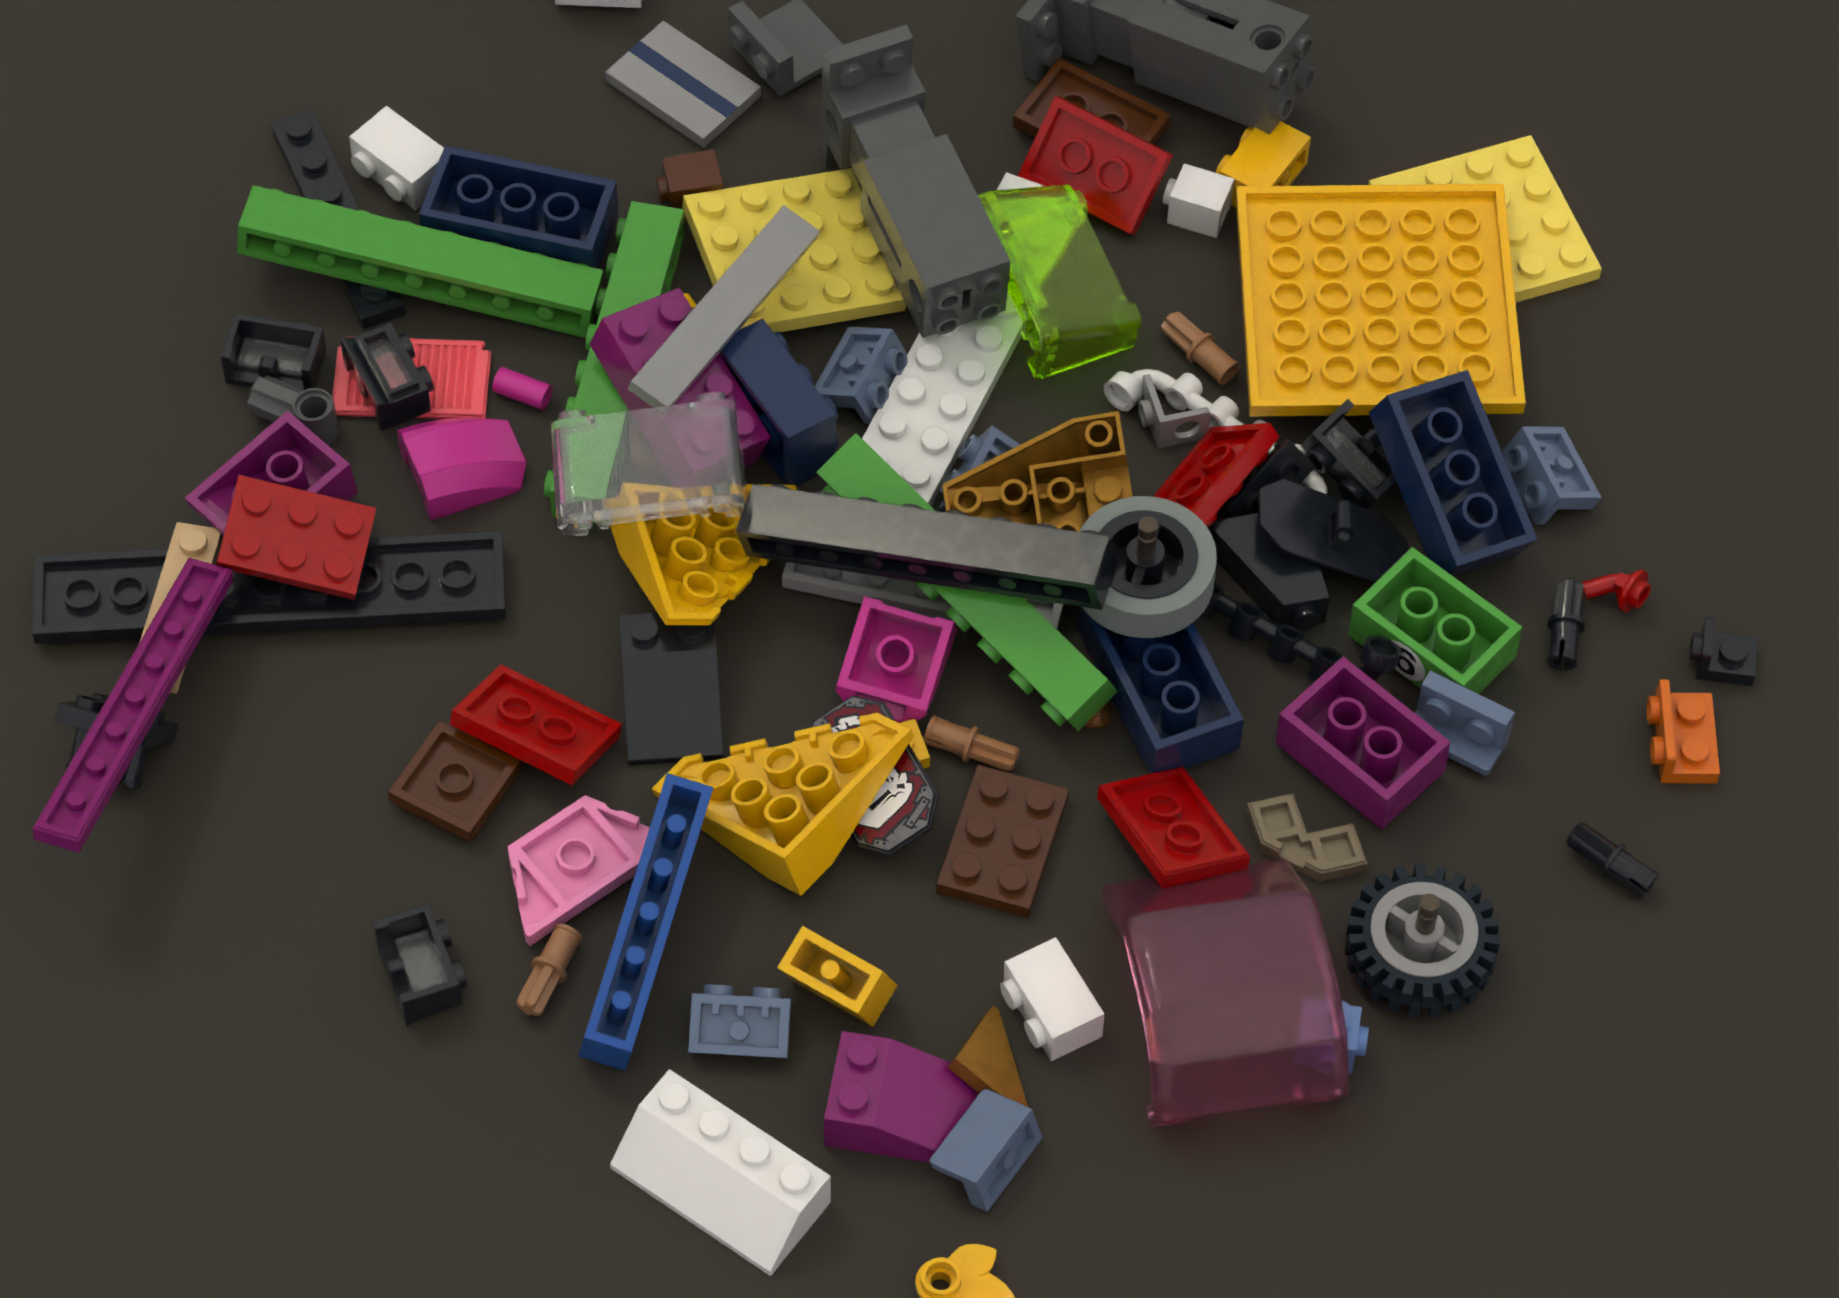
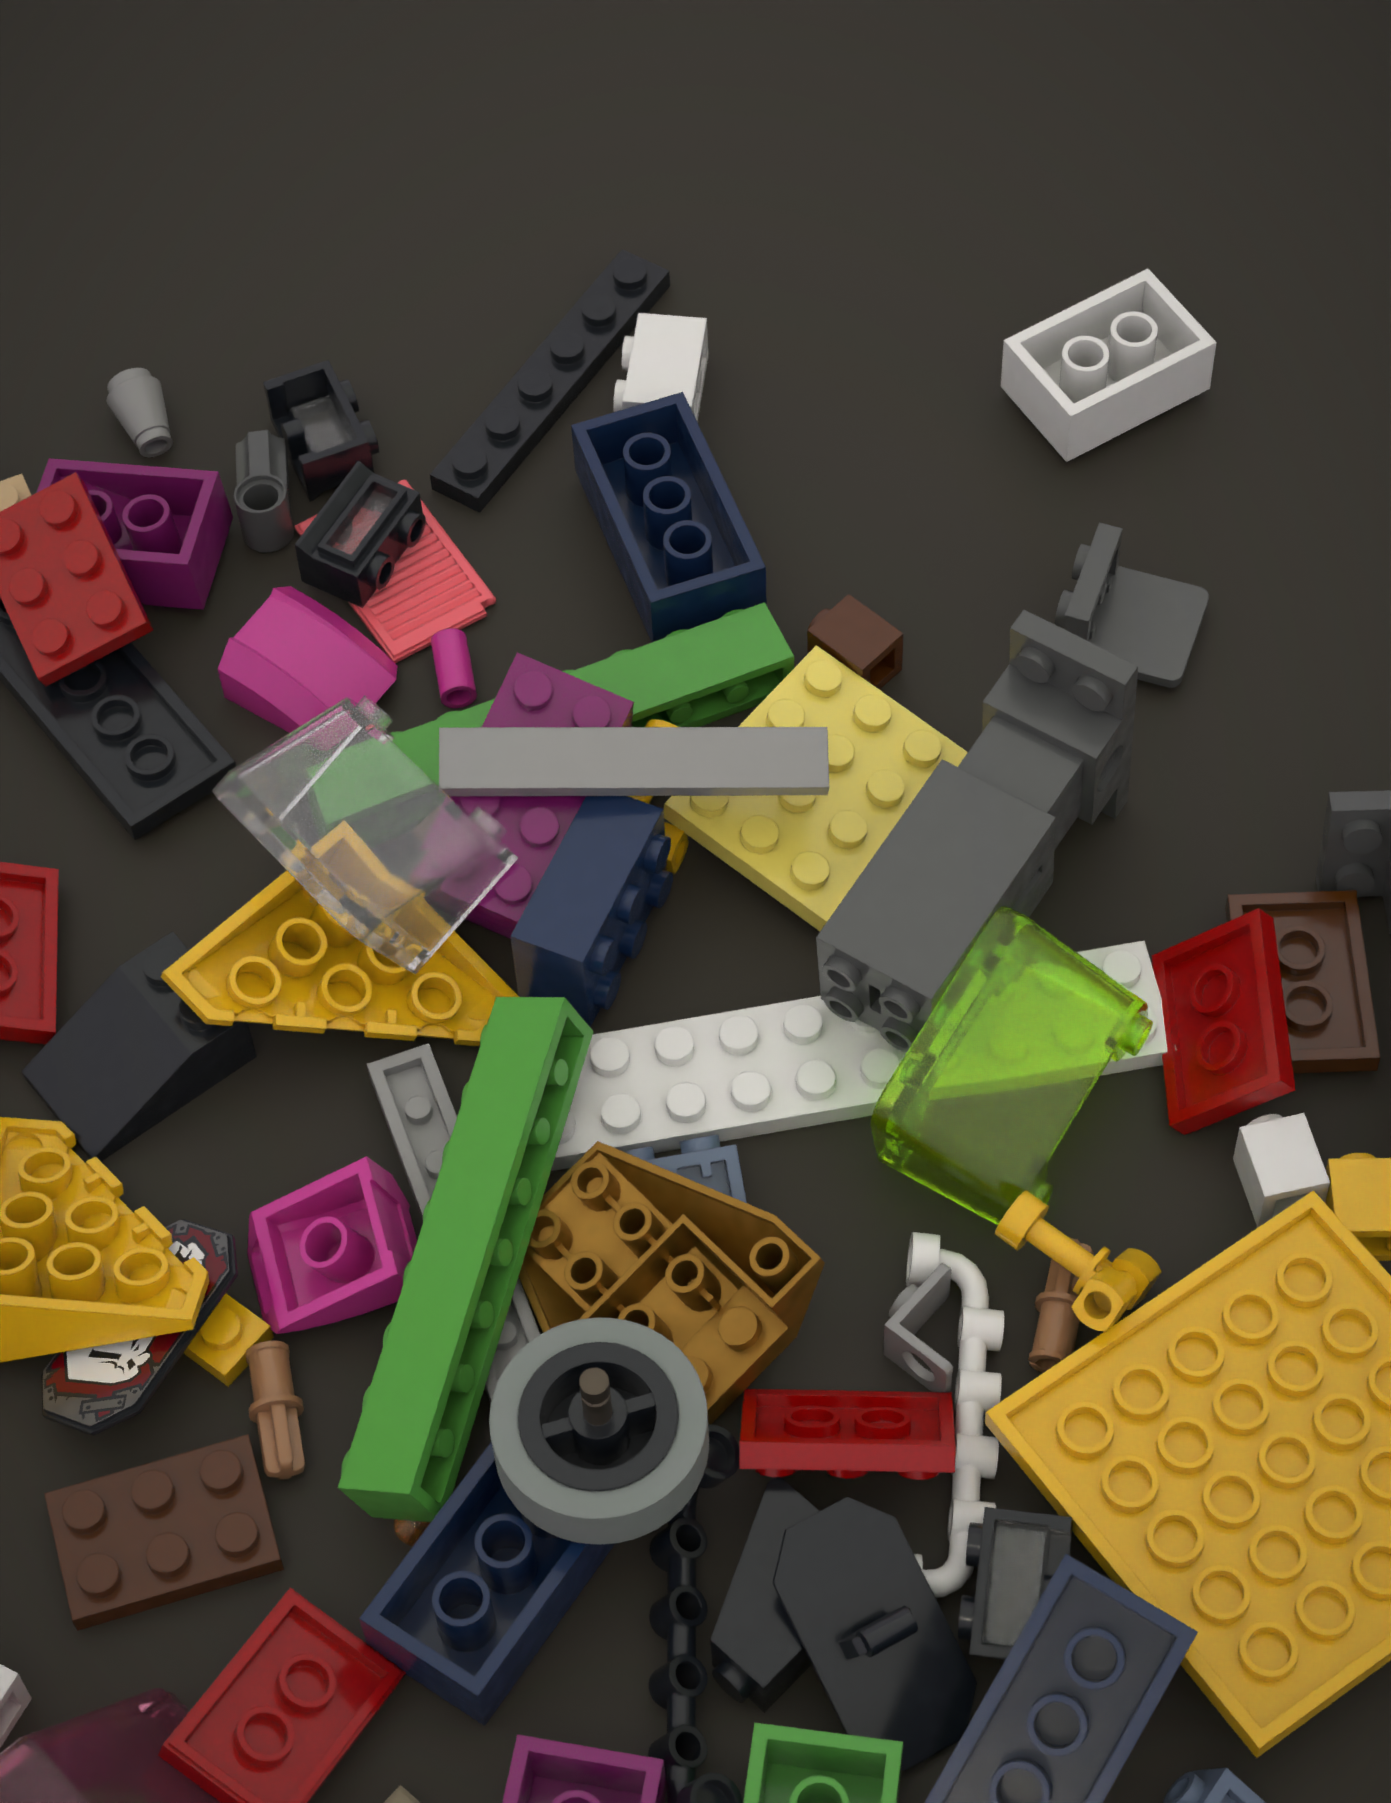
camera: 60 degrees right, 0 degrees up
(165, 442) = (141, 410): none -> light grey cone
(419, 261) = (524, 467): bright green brick -> none
(683, 84) = (994, 558): light grey tile -> none
(863, 370) = (728, 969): sand blue bracket -> none
(928, 546) = (446, 1182): brick -> none
(1207, 308) = (1103, 1286): none -> yellow bar
(1282, 463) = (923, 1509): black hinge -> none

